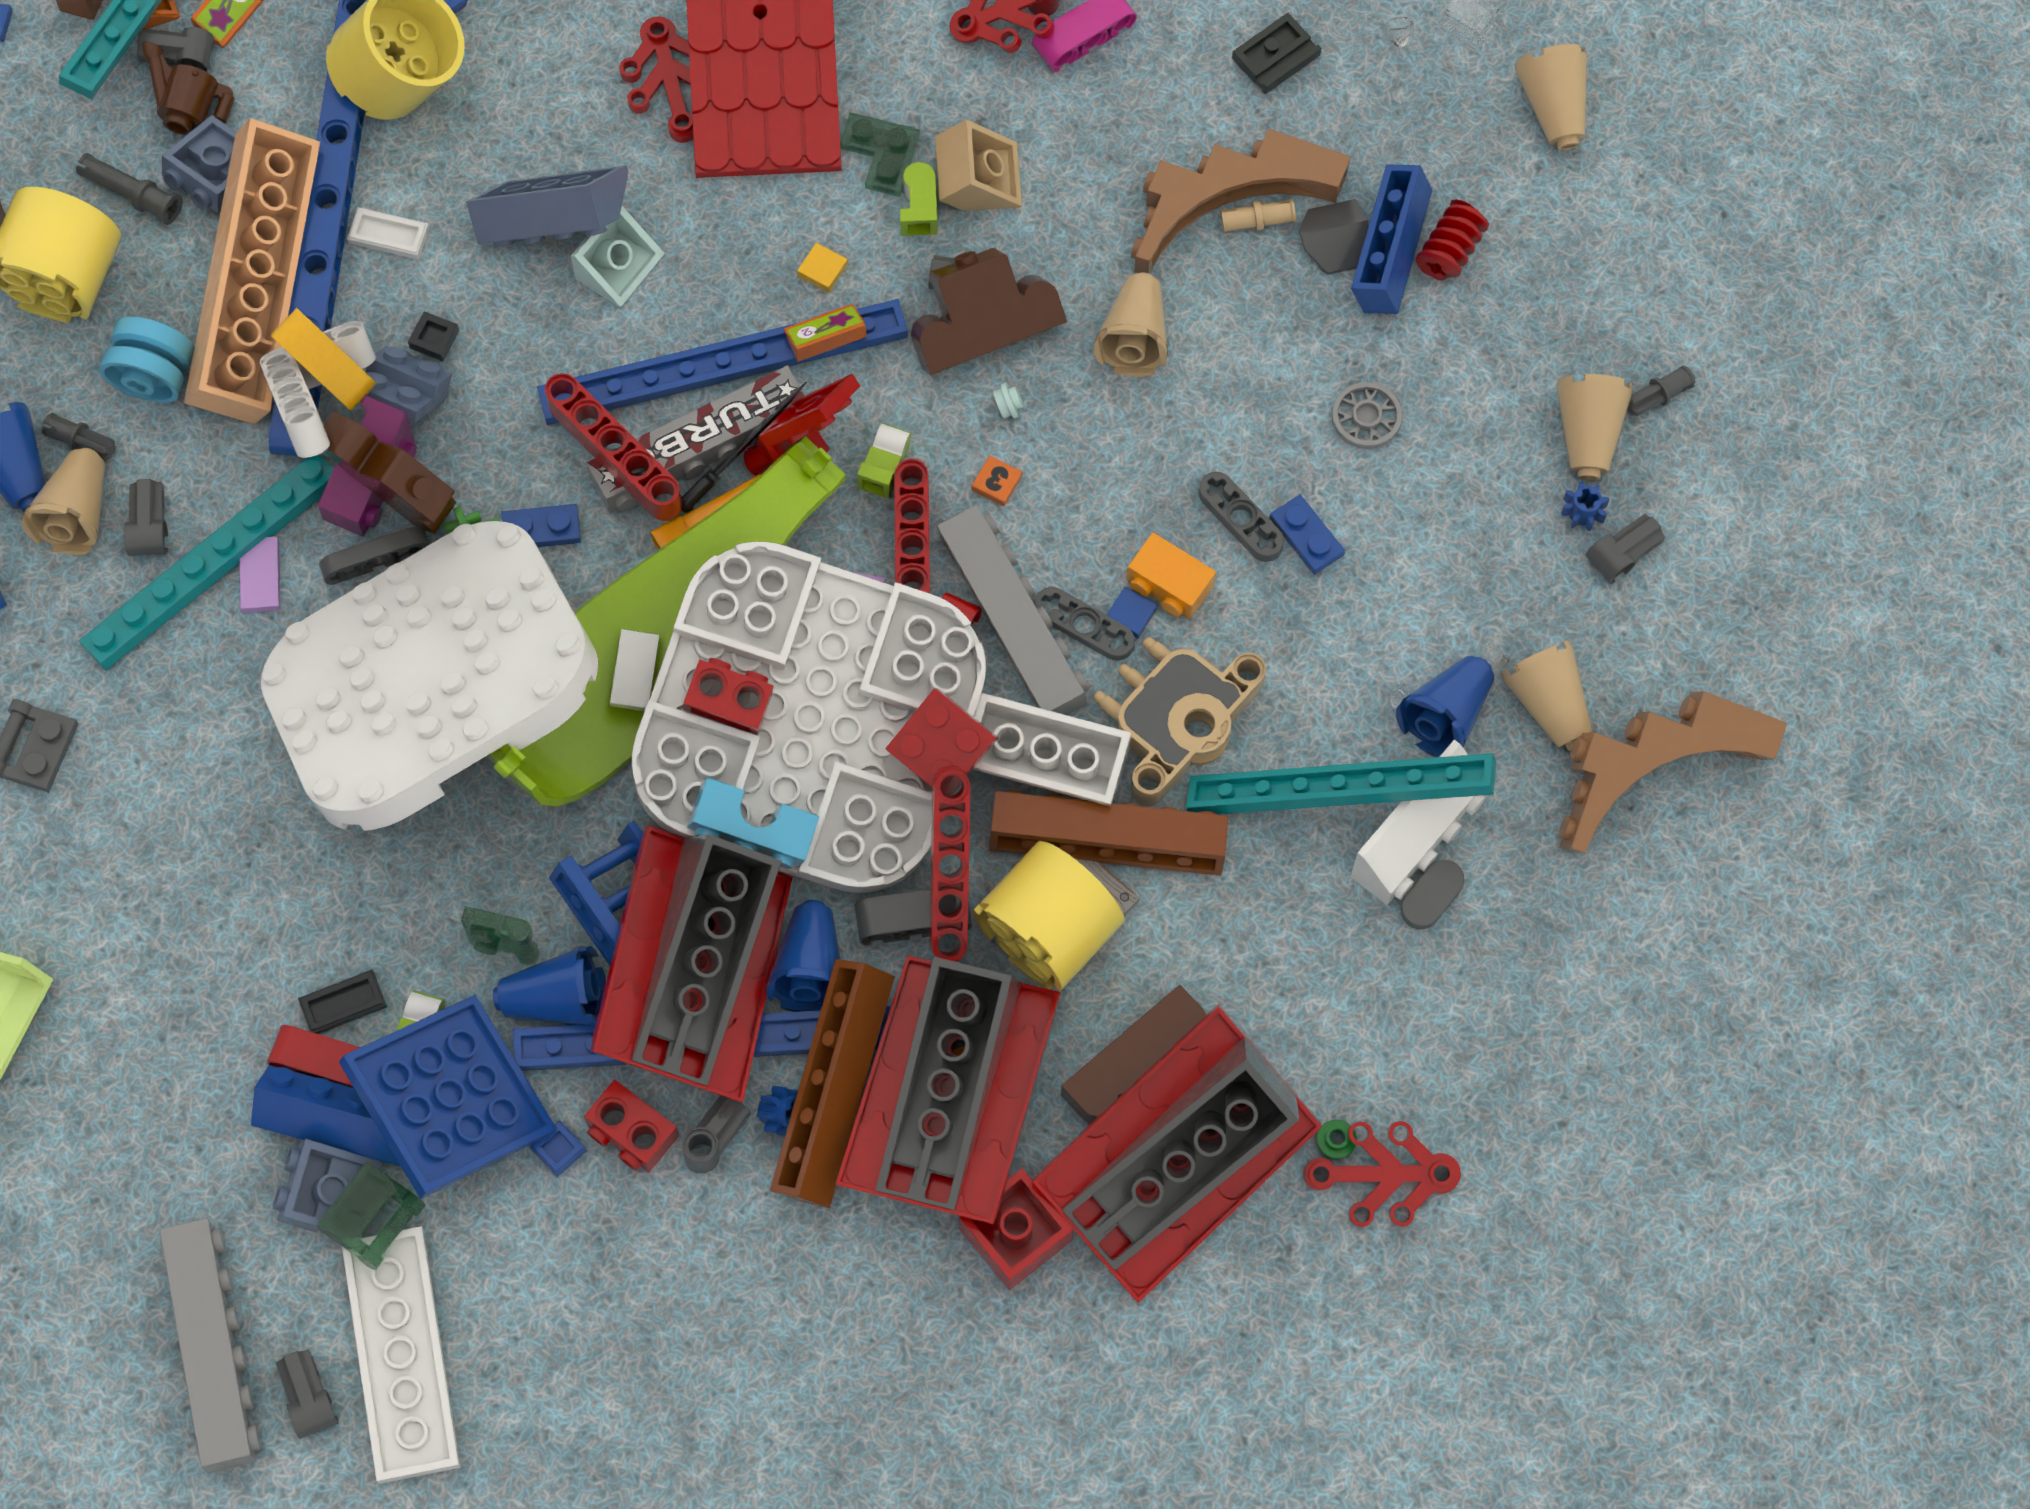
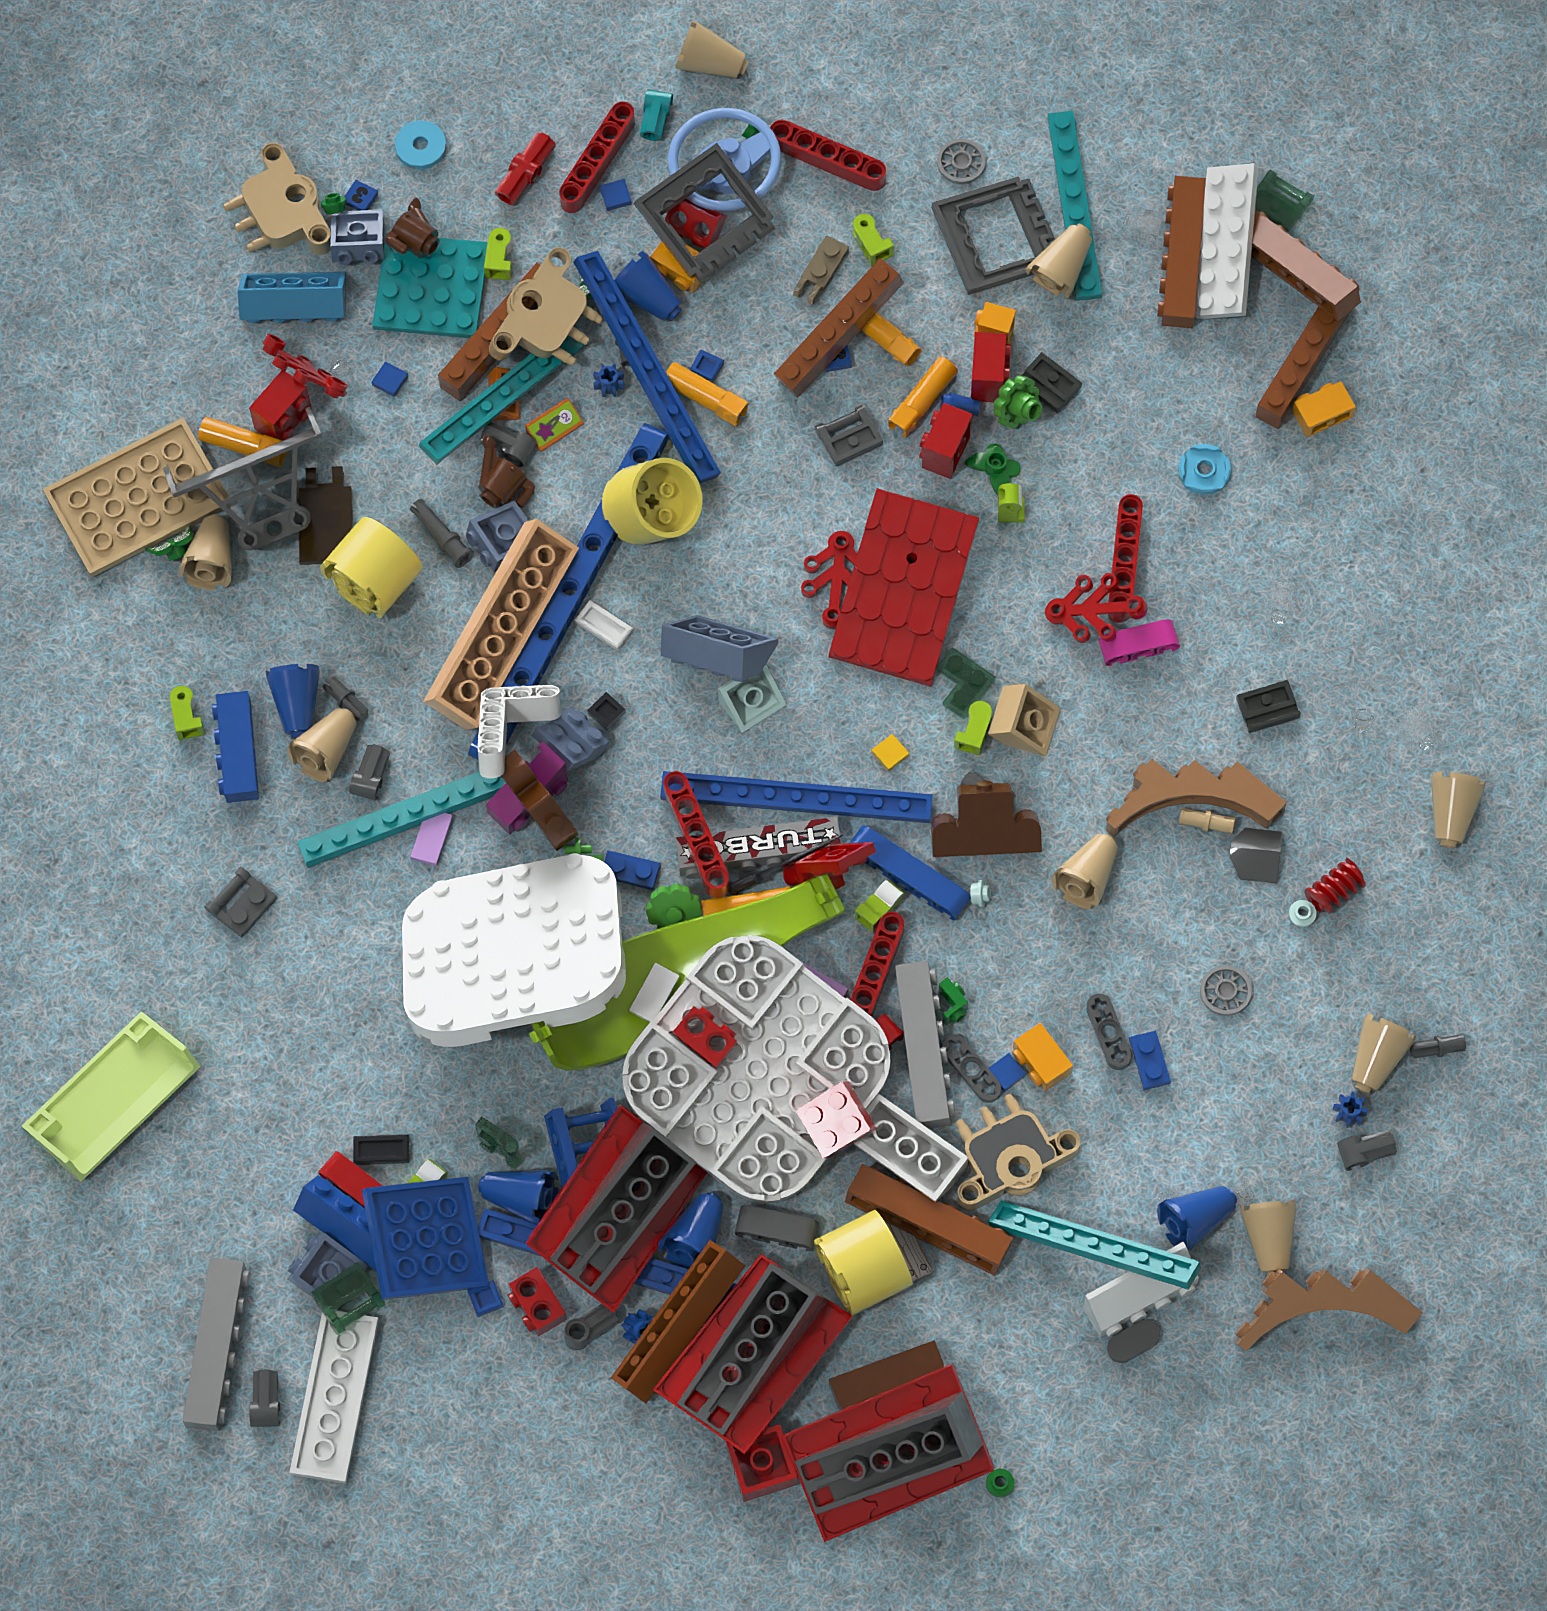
camera: 25 degrees right, 0 degrees up
(146, 359) = (409, 662): medium azure wheel -> none
(323, 359) = (523, 708): yellow beam -> none
(373, 553) = (511, 850): dark grey beam -> none
(615, 549) = (672, 905): none -> bright green plant
(719, 814) = (668, 1117): medium azure arch -> none
(825, 332) = (872, 801): slope -> none
(916, 407) = (913, 874): none -> blue beam
(957, 882) = (809, 1217): red beam -> none
(996, 481) = (951, 947): orange tile -> none
(1029, 541) = (955, 997): none -> green bracket
(1390, 1173) = (1026, 1518): red plant -> none
(1391, 239) = (1292, 871): blue brick -> none
(1419, 296) = (1302, 921): none -> light aqua plate

